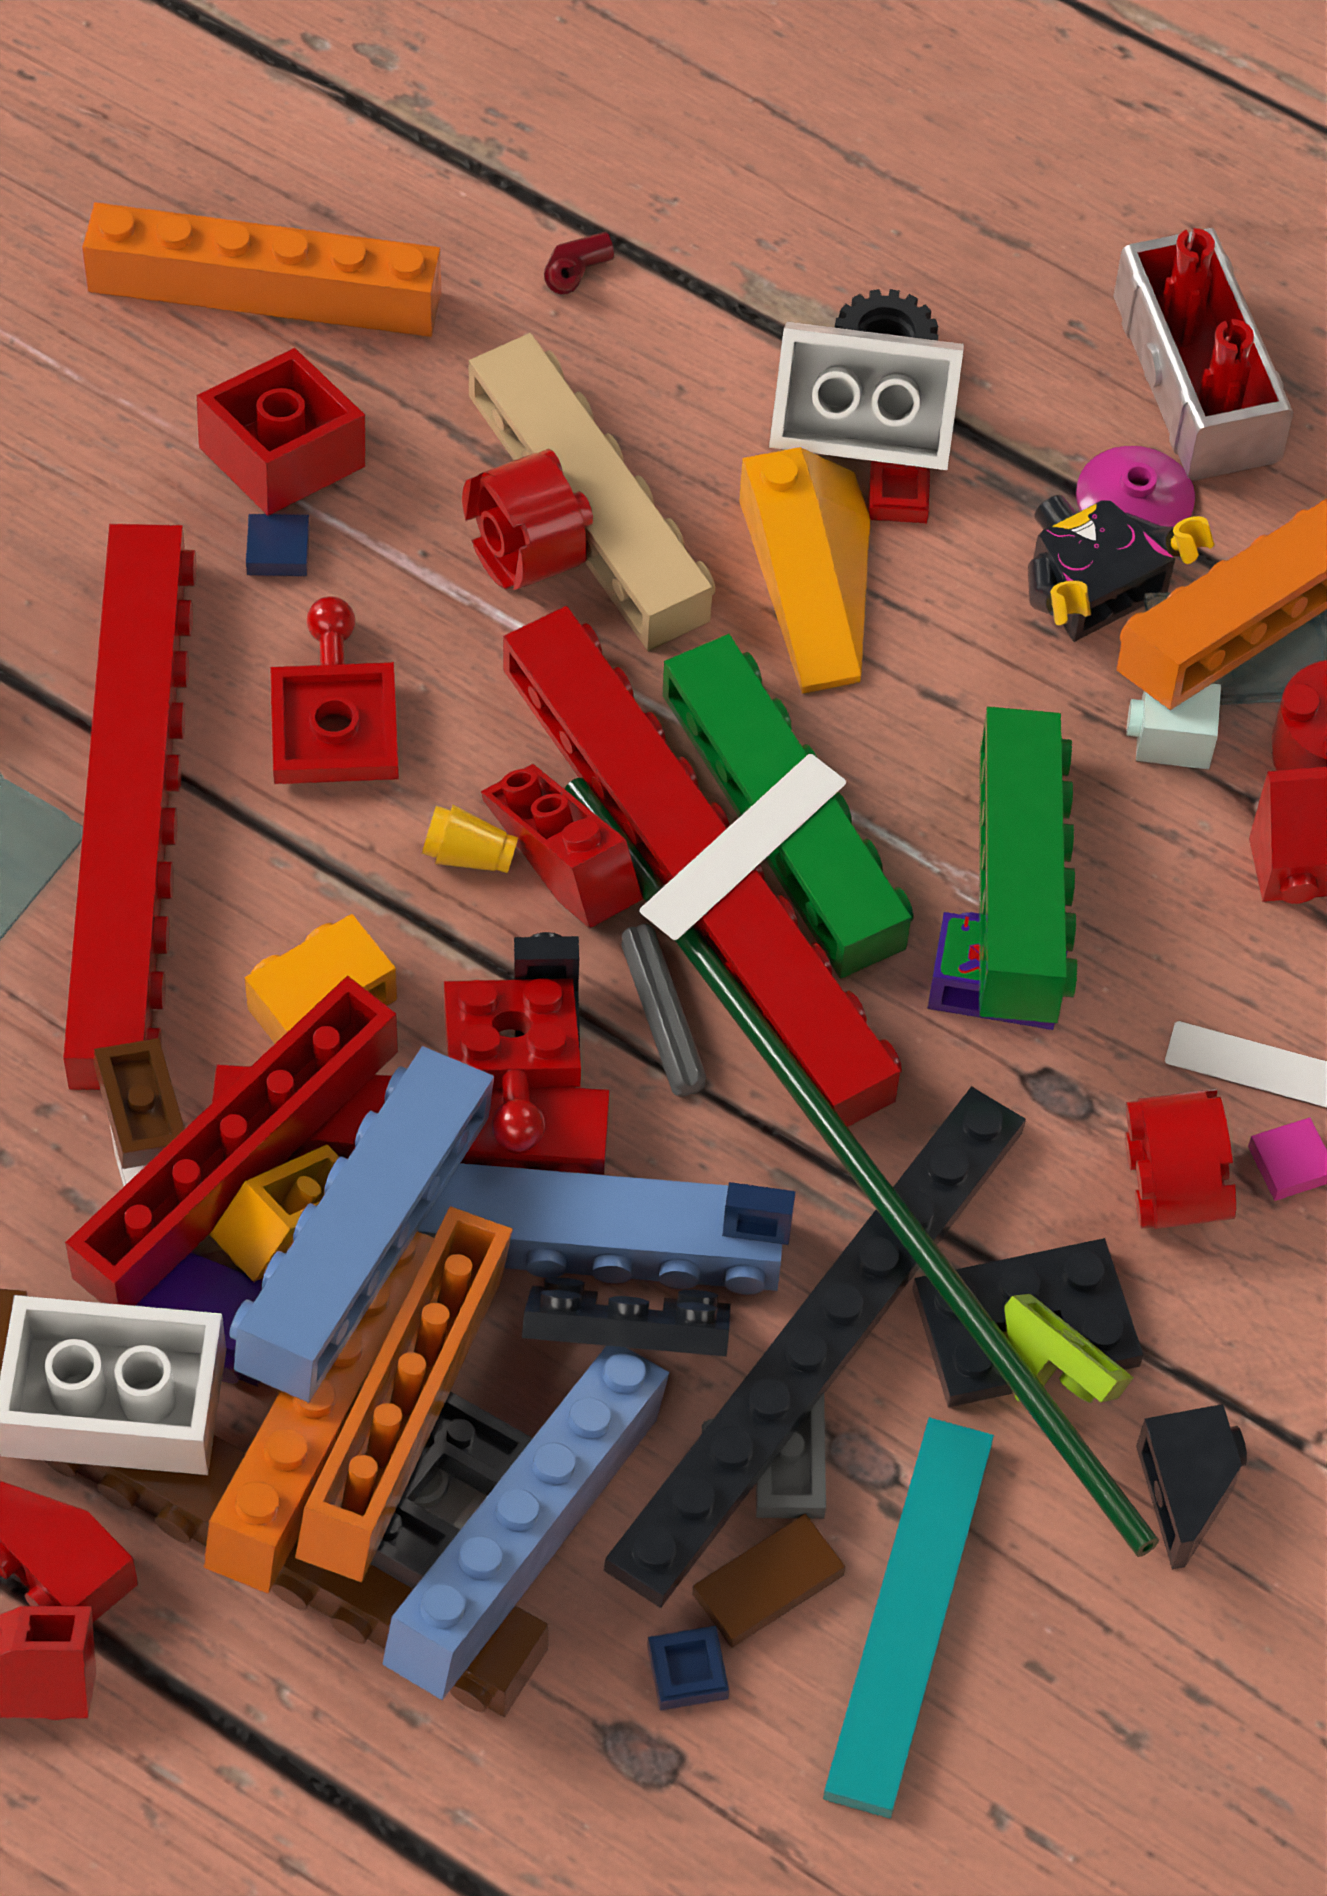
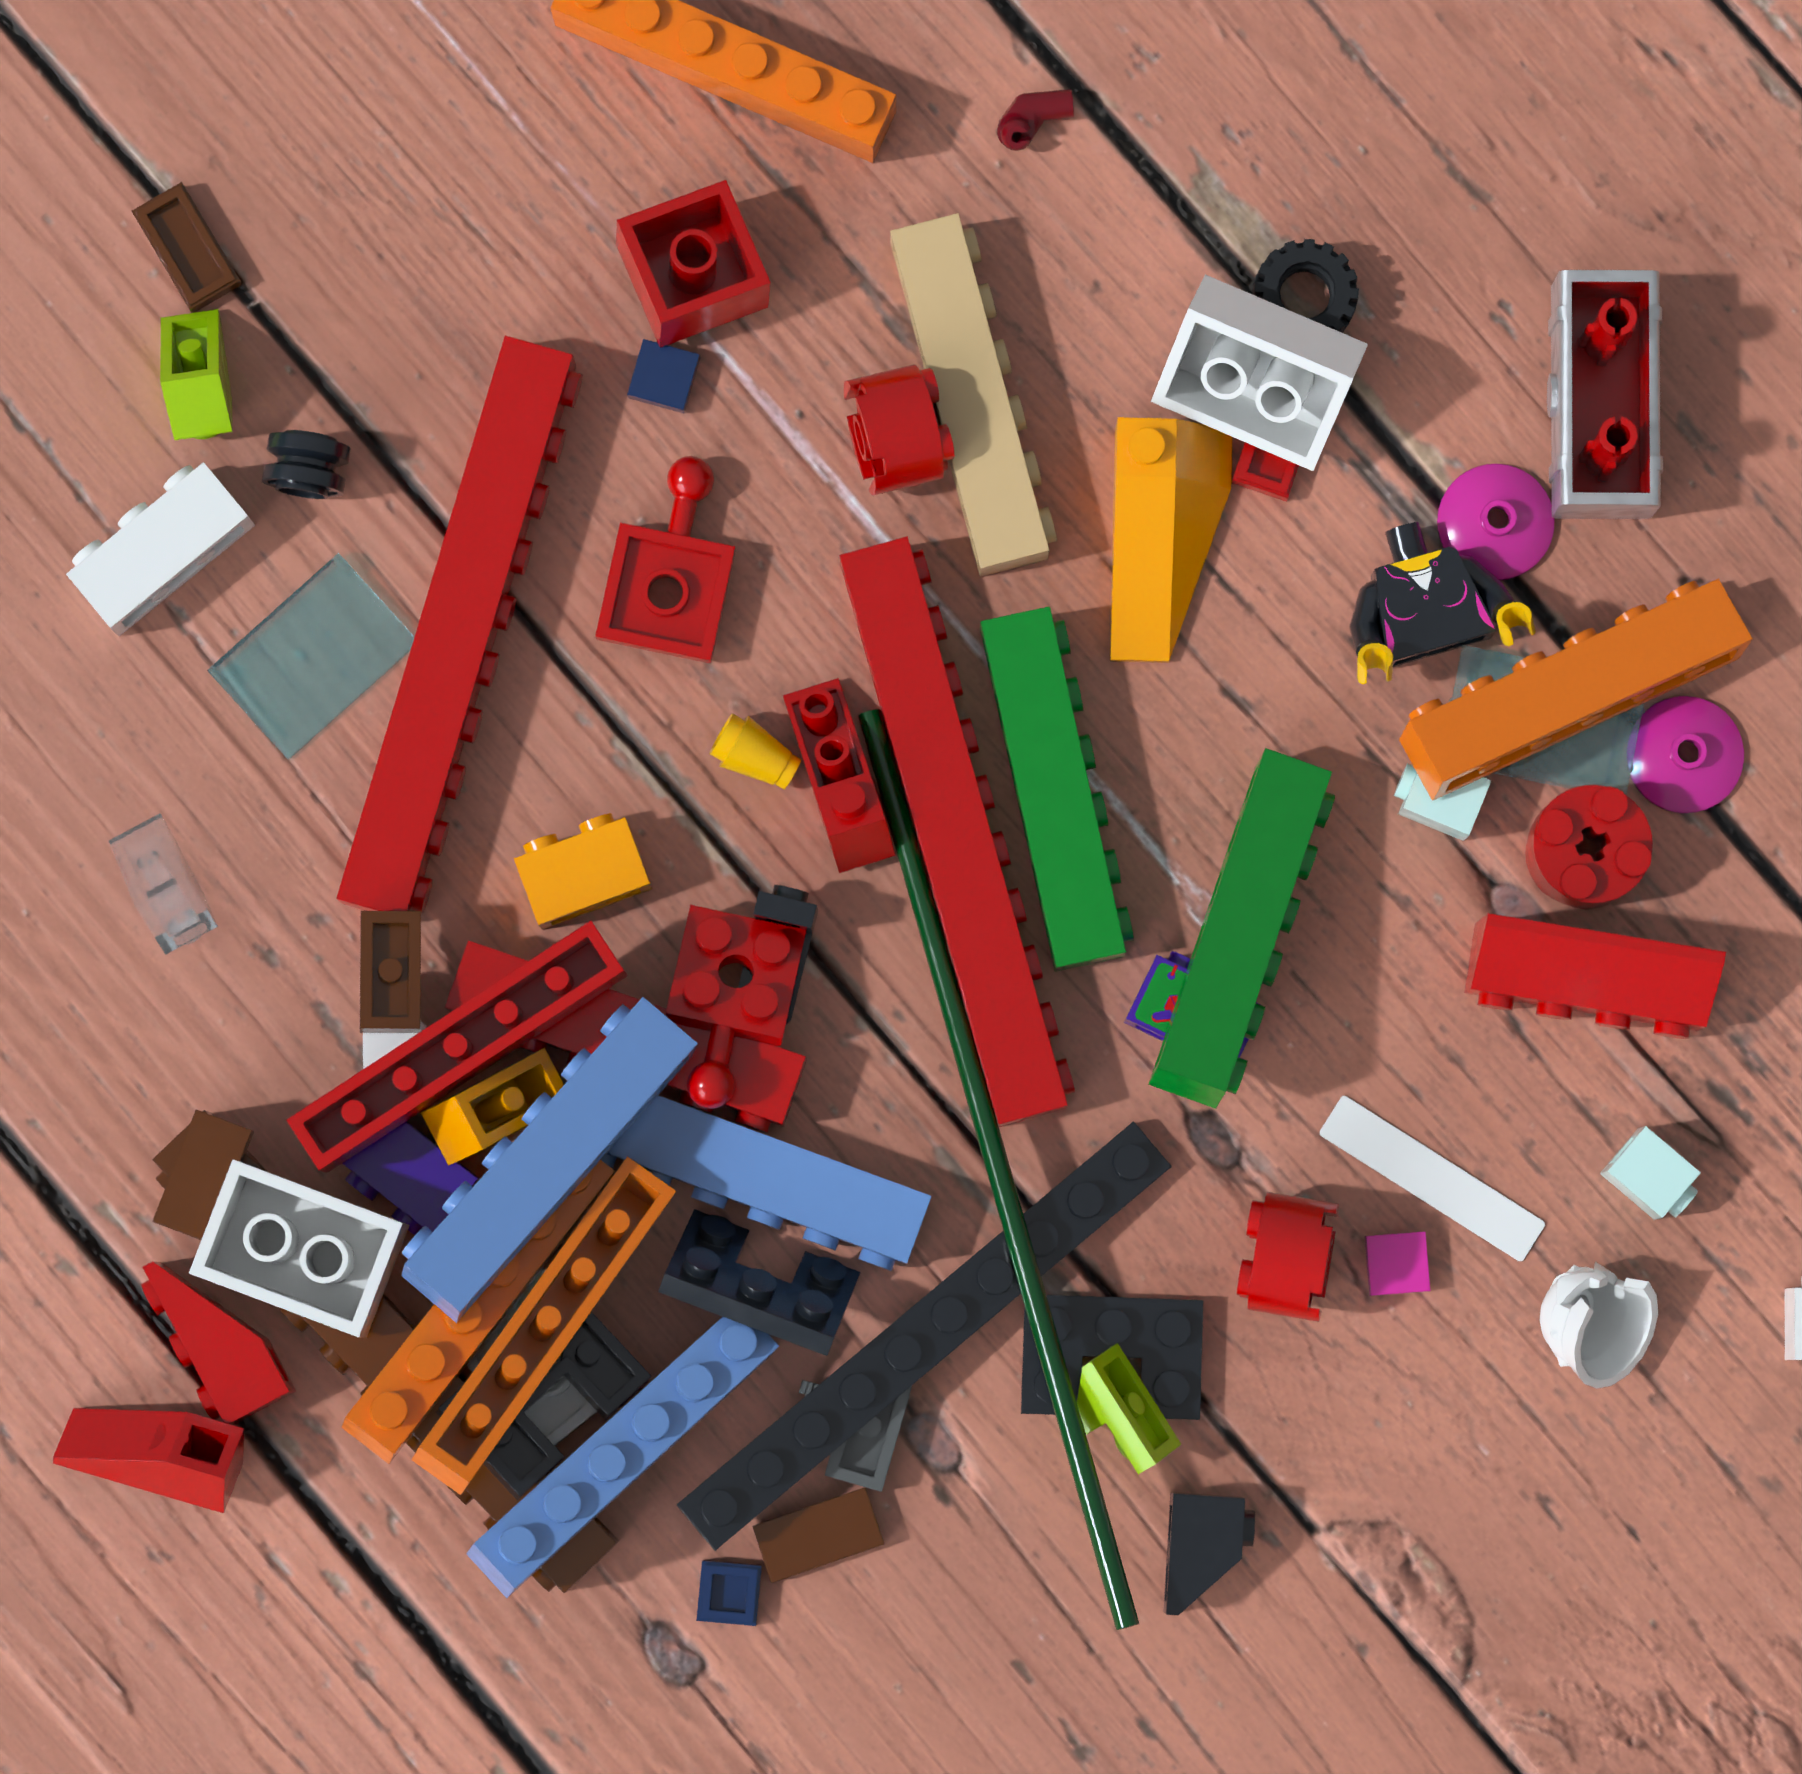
camera: 20 degrees right, 25 degrees up
(663, 1010) = (883, 968): dark grey axle -> none
(742, 847) = (995, 840): white sticker -> none
(758, 1213) = (895, 1225): dark blue tile -> none
(908, 1619) = (927, 1597): teal tile -> none

